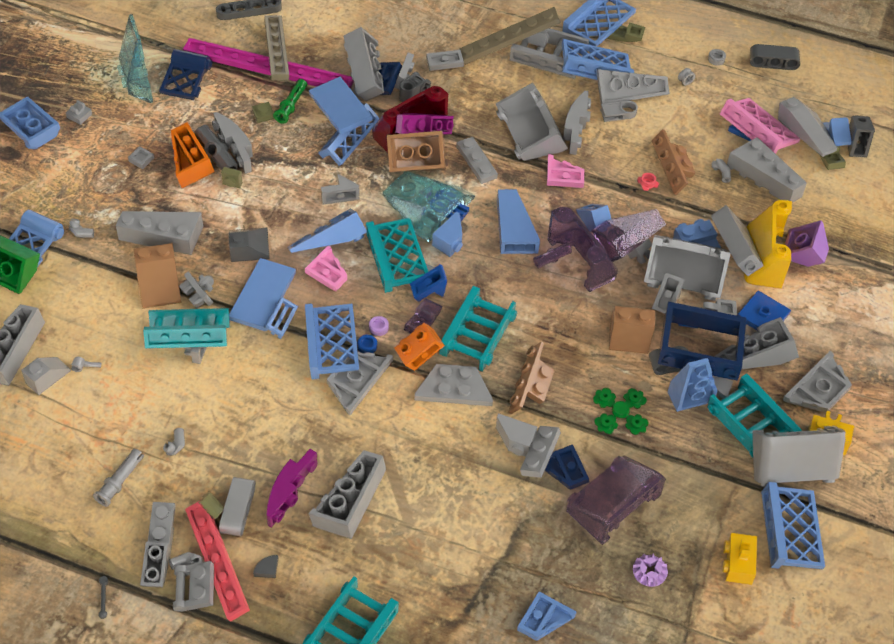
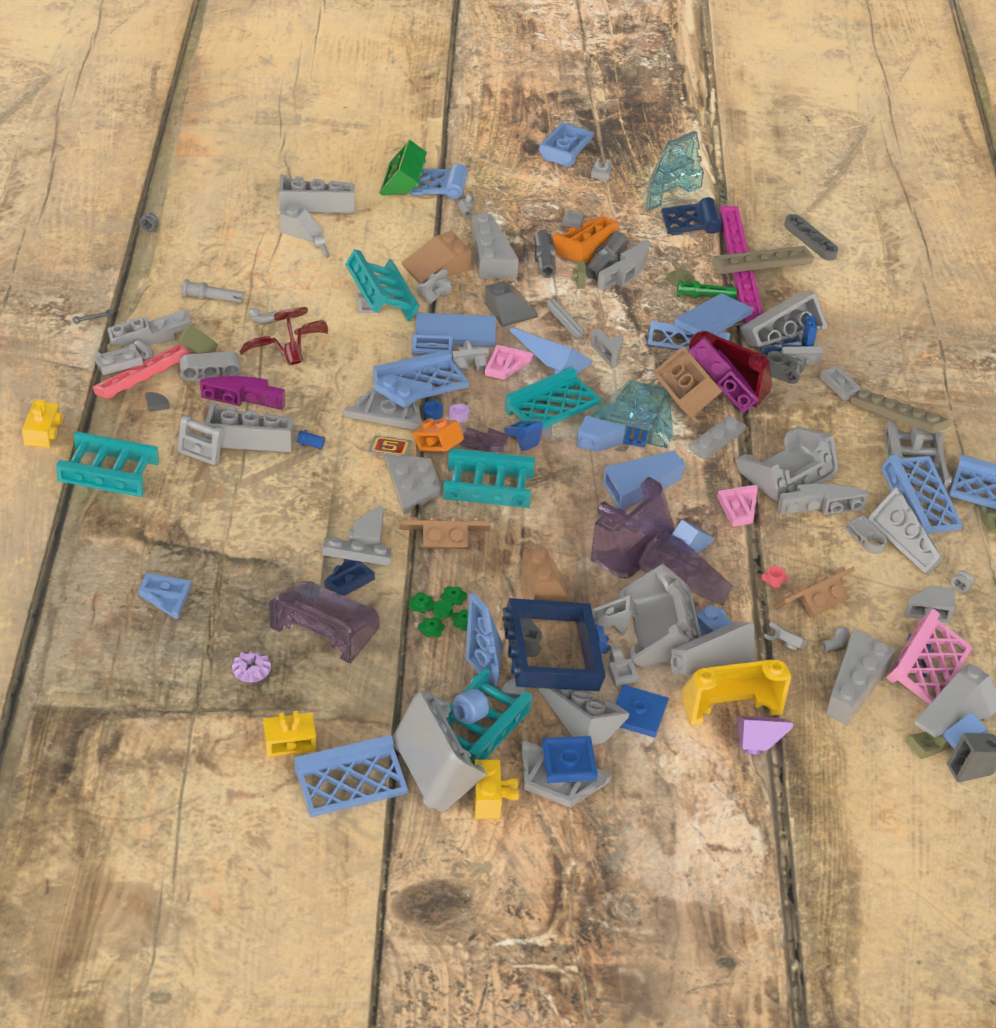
camera: 70 degrees right, 10 degrees down
(187, 193) = (545, 253): none -> dark grey piece
(246, 428) = (292, 349): none -> dark red plant
(283, 209) = (564, 317): none -> light grey axle
(311, 291) = (470, 355): none -> light grey hips
(350, 355) = (402, 390): none -> medium blue wing
(358, 541) = (198, 446): none -> light grey plate
(378, 446) = (310, 439): none -> blue pin
(398, 51) = (809, 332): none -> blue tile
(405, 390) = (390, 446): none -> sticker
(705, 100) = (934, 597): none -> light grey slope
(717, 195) = (791, 640): none -> light grey plate
(754, 416) = (470, 706): none -> medium blue head
(817, 370) = (569, 759): none -> blue plate

